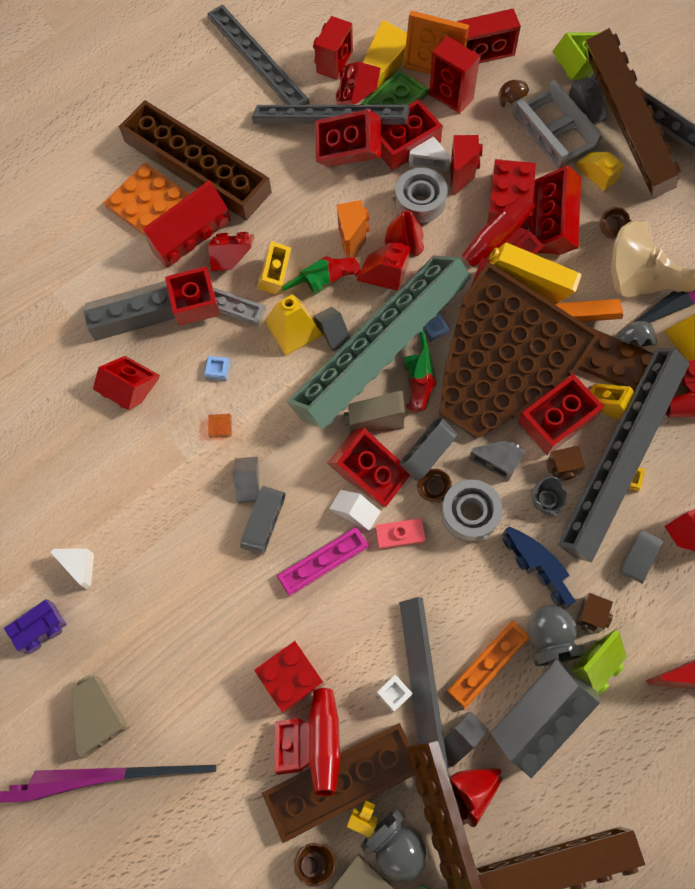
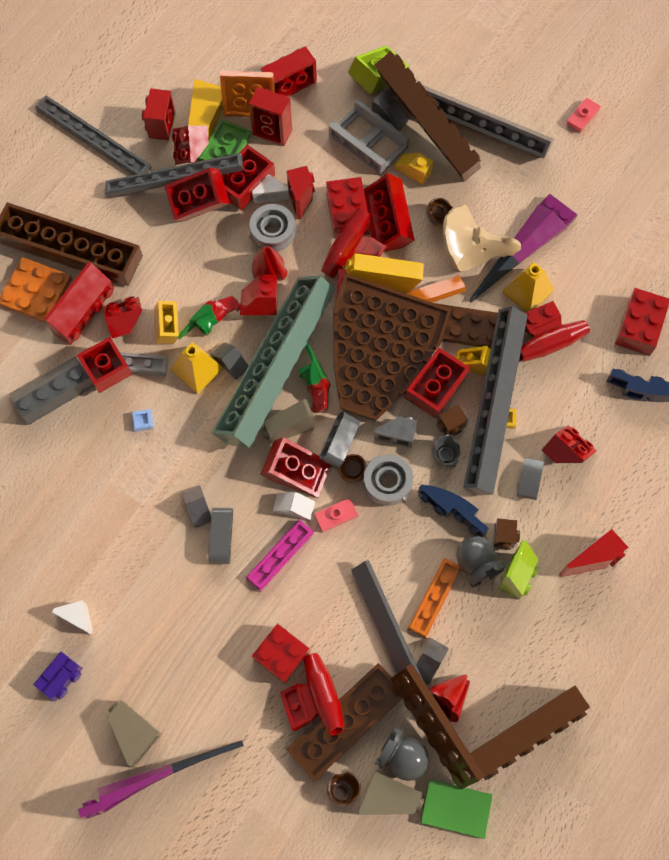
camera: 20 degrees left, 0 degrees up
(125, 382) = (67, 453): red slope -> none
(219, 425) = (160, 468): clear orange tile -> none
(352, 226) = (222, 270): orange slope -> none
(363, 820) = (371, 745): yellow tile -> none
(394, 693) = (367, 641): white panel -> none
(436, 328) = (317, 337): light blue tile -> none
(512, 91) = (324, 117): reddish brown hair -> none
(545, 717) = (488, 623): dark grey slope -> none
(640, 332) = (482, 298): dark grey hair -> none

